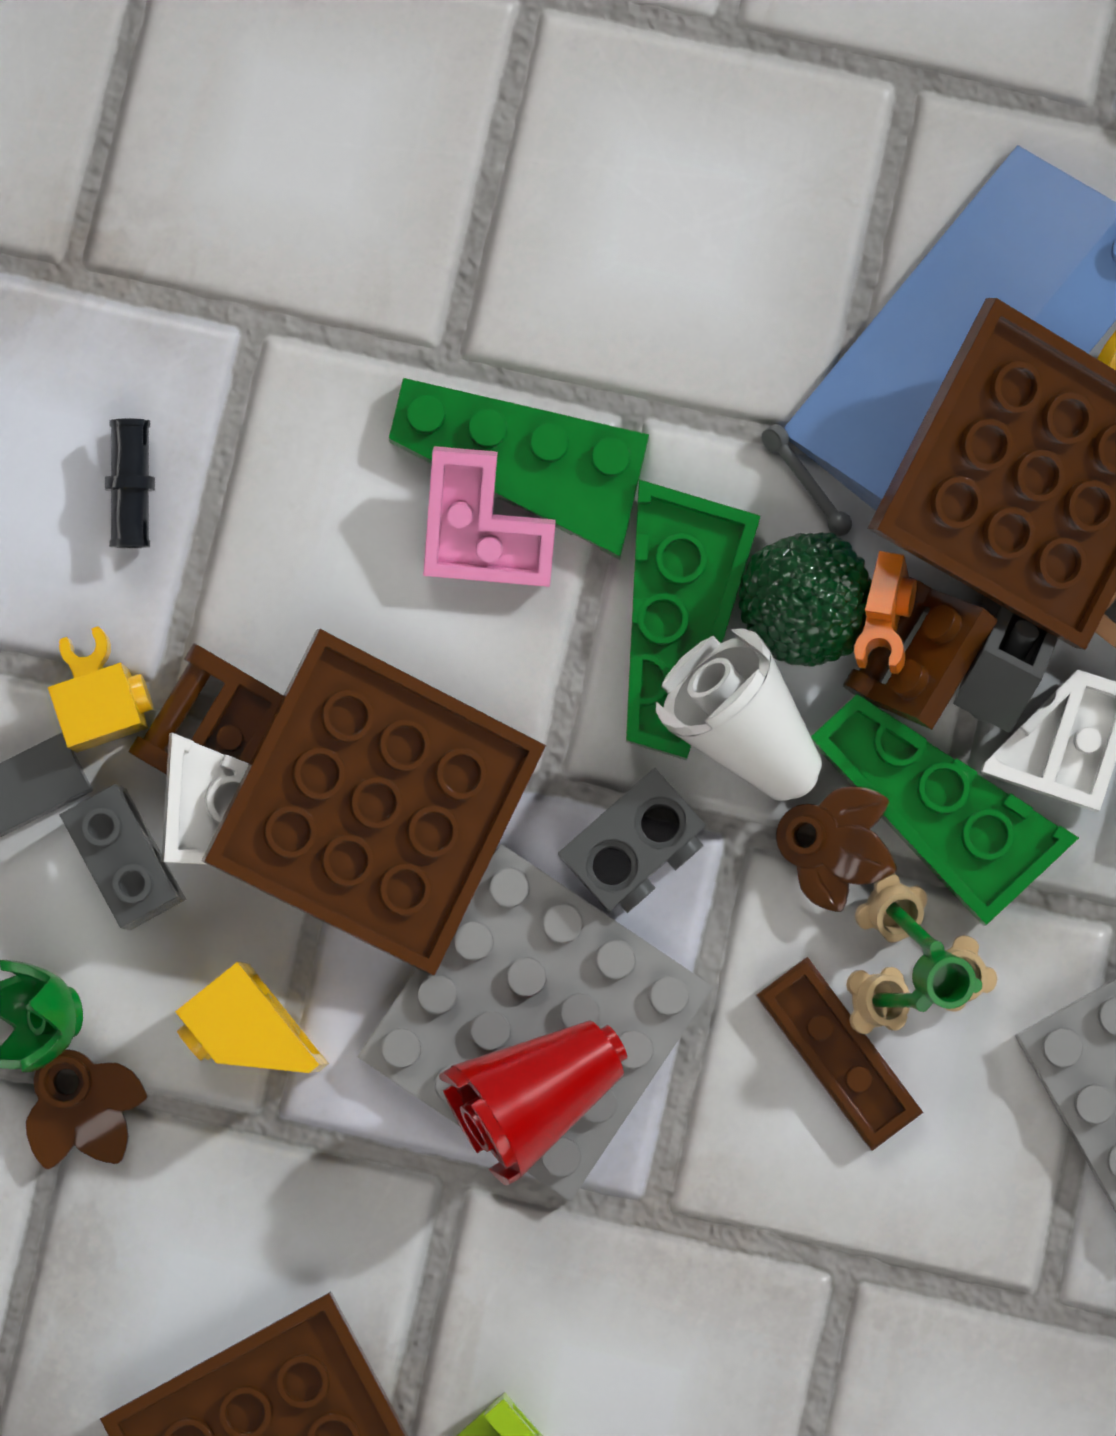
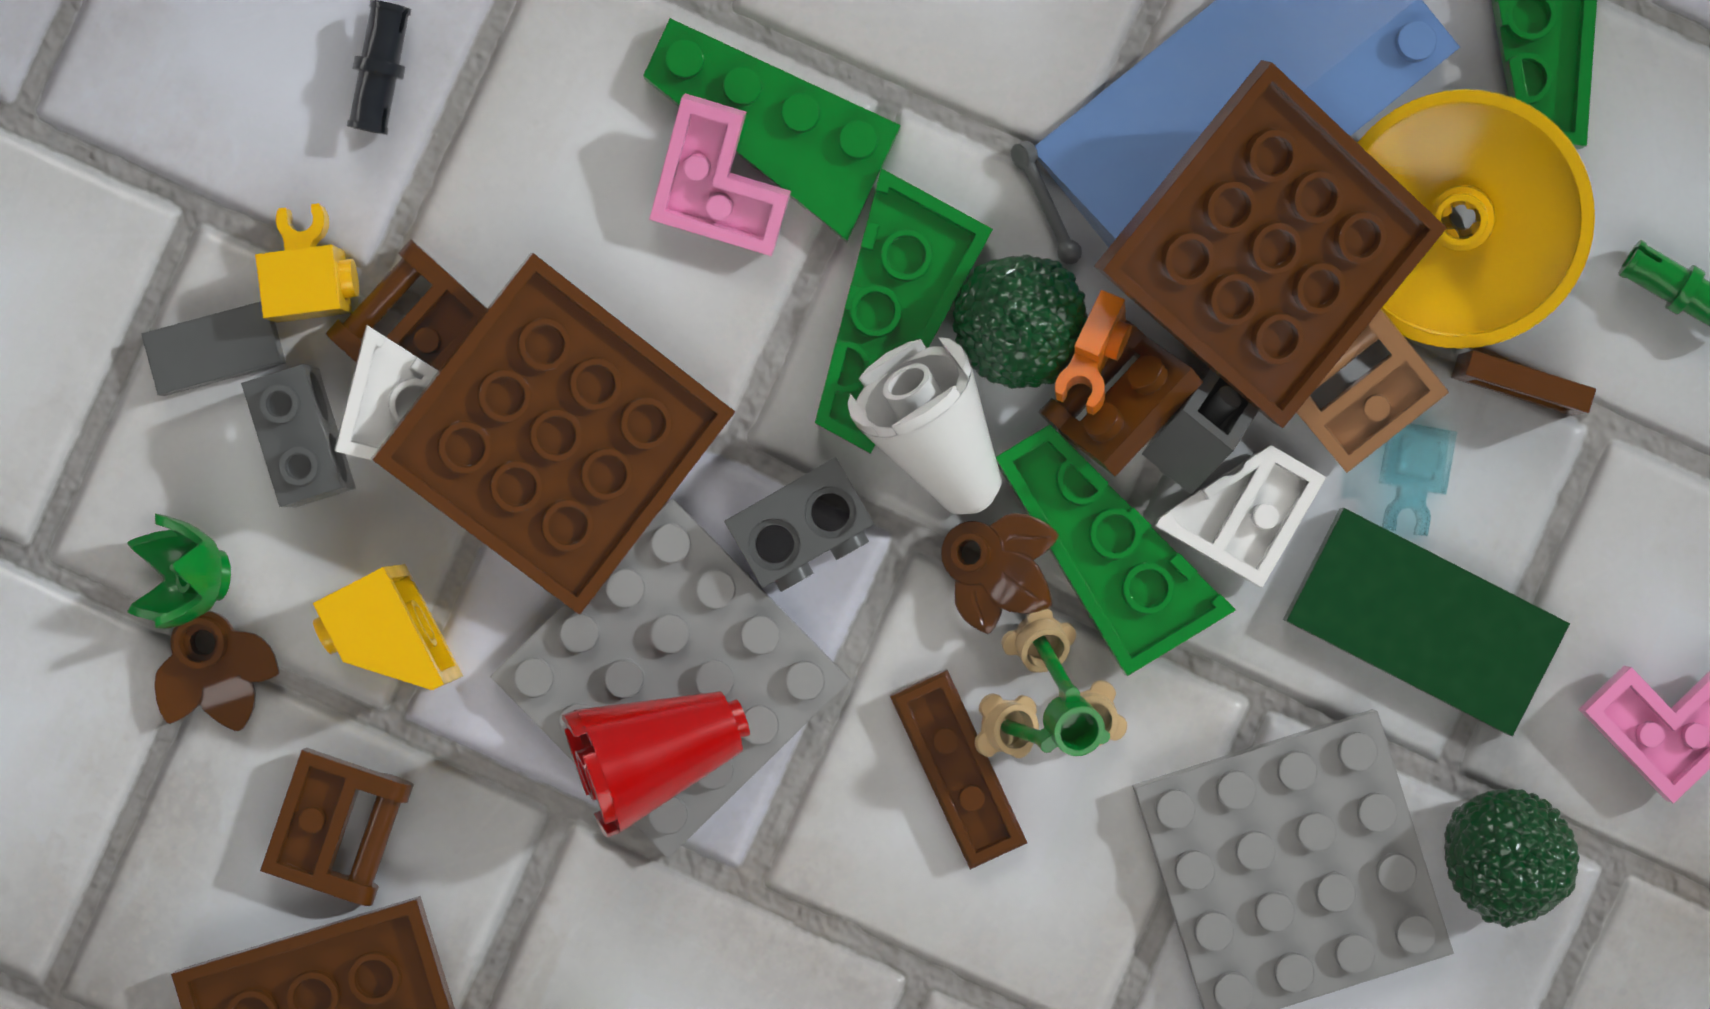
camera: 10 degrees right, 5 degrees up
(213, 1236) = (316, 820): none -> reddish brown plate

